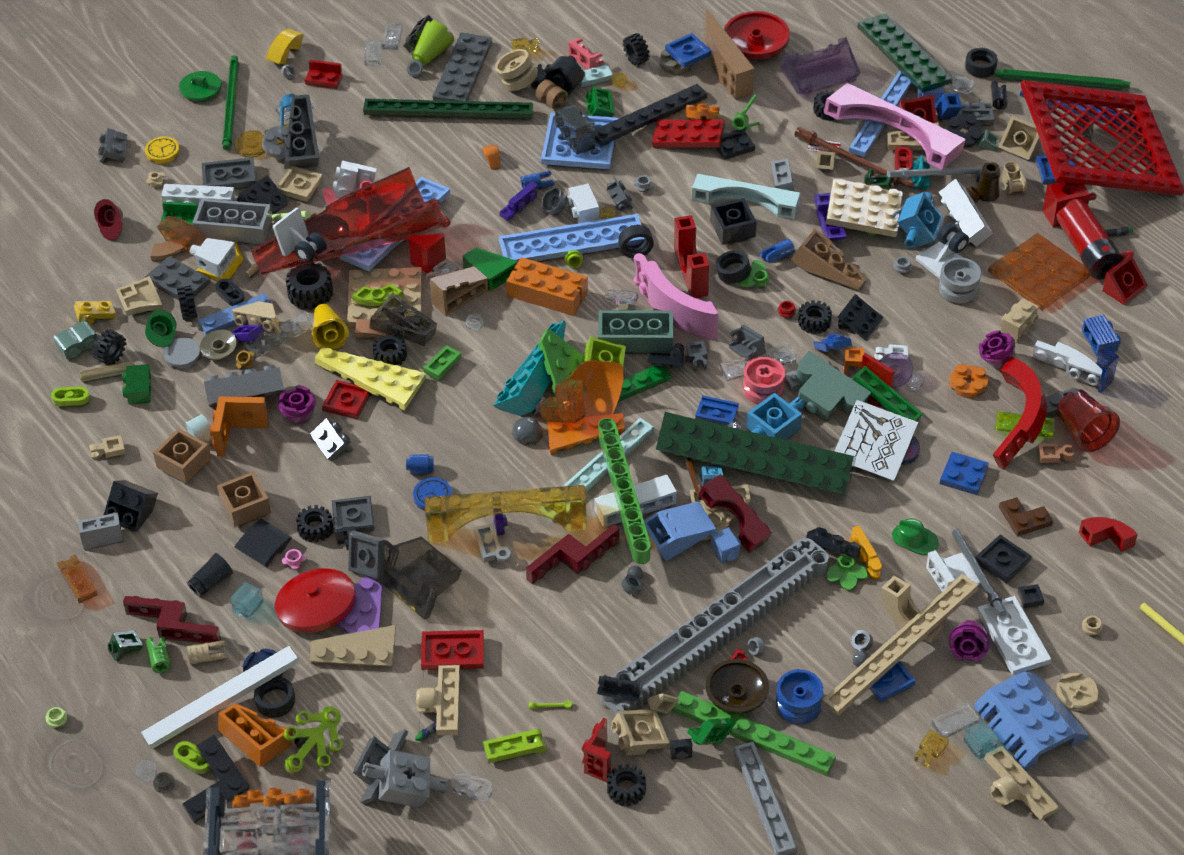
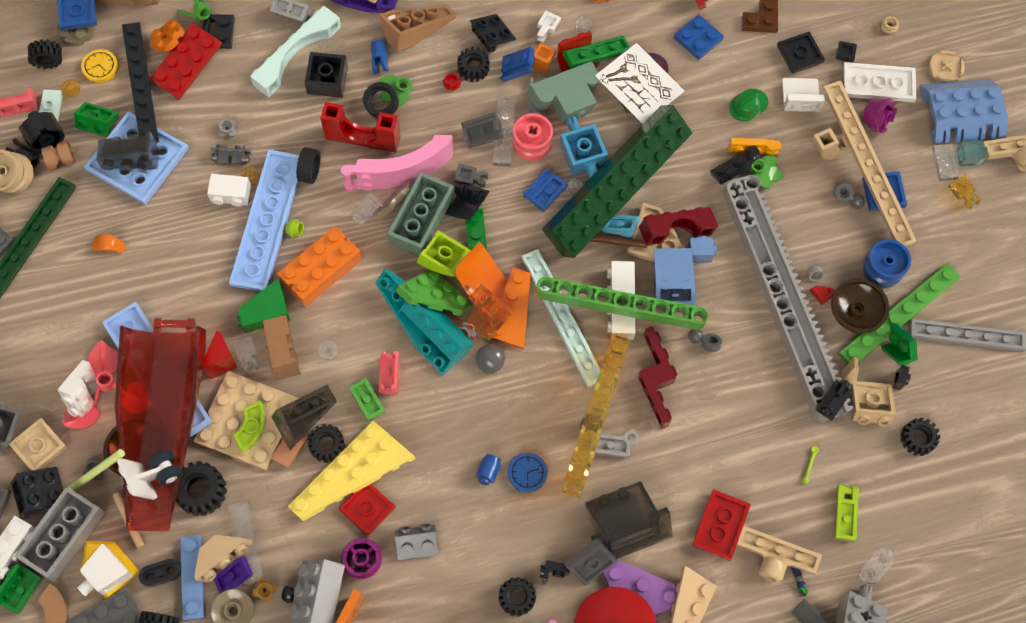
camera: 70 degrees left, 20 degrees up
(178, 229) = (44, 596): clear orange brick -> none
(328, 328) = (266, 490): yellow cone -> none
(353, 512) = (522, 556): dark grey plate -> none
(475, 369) = (389, 373): none -> coral hinge
(519, 201) = (192, 247): dark purple hinge -> none
(536, 178) = (169, 220): blue hinge -> none
(554, 201) = (210, 214): dark grey hair -> none
(596, 758) = (884, 447): red bracket -> none
(651, 88) = (99, 66): none -> yellow tile
(900, 363) = (566, 23): clear purple dish -> none
(993, 597) = (846, 77): dark grey bar -> none

